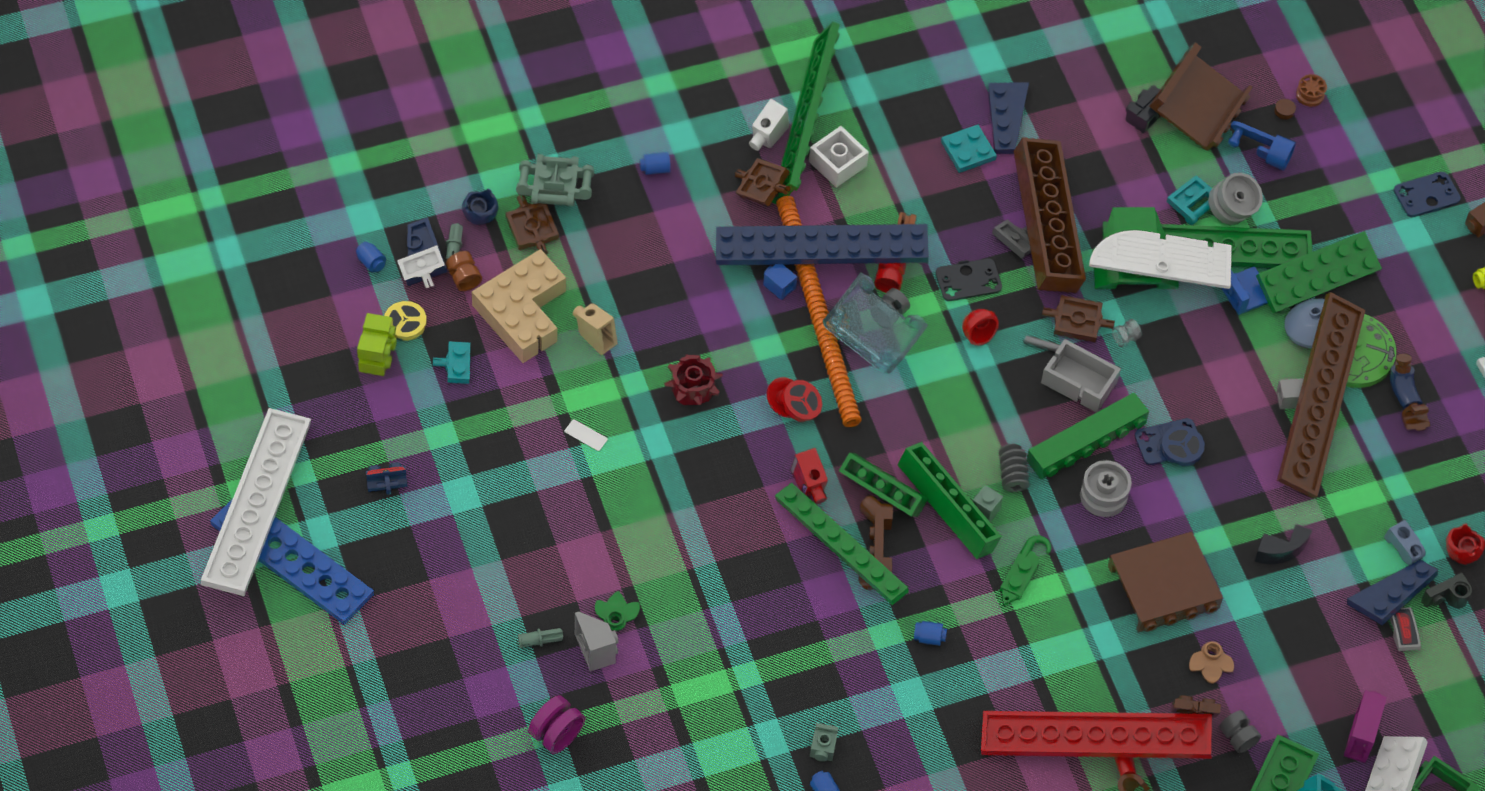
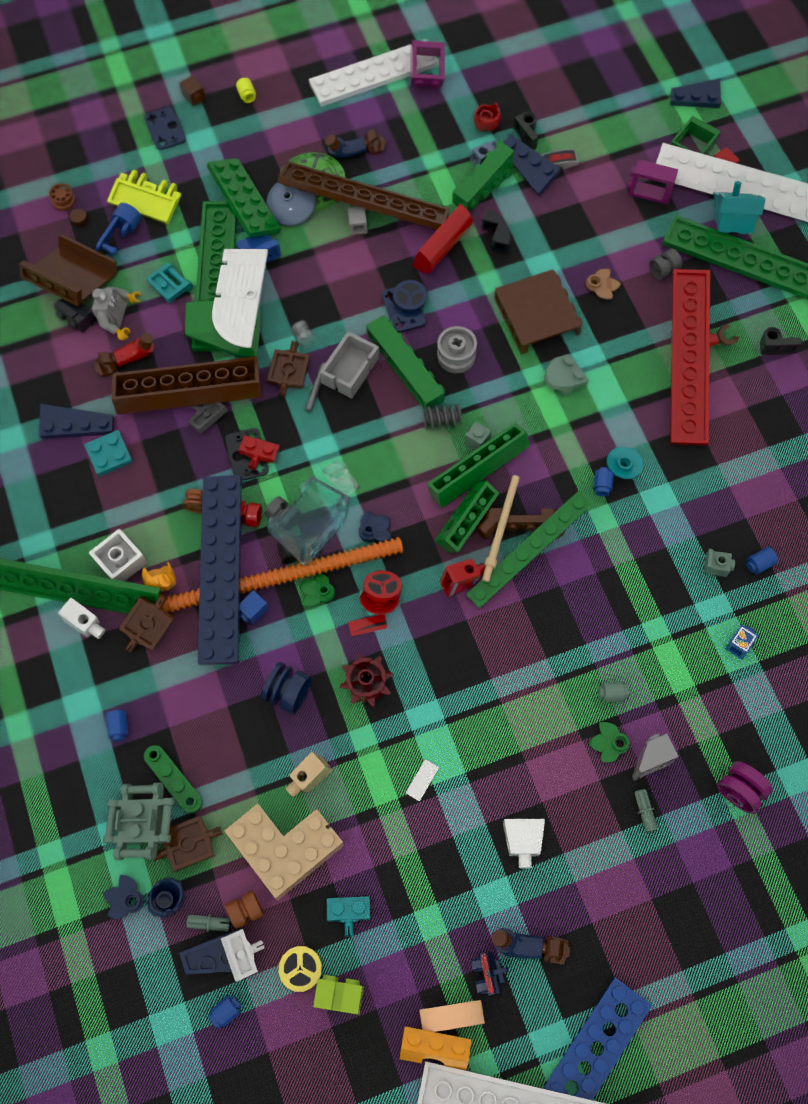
camera: 85 degrees left, 10 degrees up
(324, 417) = (424, 1044): none -> light orange arch
(349, 442) = (452, 1016): none -> light nougat brick
(411, 506) = (530, 946): none -> piece
(484, 174) = (121, 896): none -> dark blue plate
(516, 518) = (524, 839): none -> white torso
(598, 214) = (173, 779): none -> green plate
(672, 617) = (613, 692): none -> sand green brick
(686, 305) = (284, 687): none -> dark blue wheel
(726, 754) = (742, 641): none -> blue brick
(759, 388) = (367, 625): none -> red sticker
(799, 342) = (314, 590): none -> green plate
(813, 193) = (161, 578): none -> light orange hair
(825, 501) = (490, 562): none -> tan bar
(875, 402) = (376, 526): none -> dark blue plate
(938, 368) = (340, 477): none -> clear slope
(959, 649) = (627, 457): none -> teal dish
(970, 287) = (258, 450): none -> red plate
(980, 326) = (299, 442): red hat -> none
(1022, 570) = (534, 414): green plate -> none
(1076, 605) = (564, 375): none -> sand green slope
(1094, 161) = (134, 351): none -> piece
(1151, 139) = (110, 308): none -> light grey torso
(1185, 704) = (662, 284): reddish brown plate -> none
(1235, 198) = (174, 248): light grey wheel -> none
(1262, 480) = (443, 240): none -> red brick
(1315, 171) = (145, 197): none -> neon yellow hinge
(1362, 534) = (485, 177): none -> green wedge

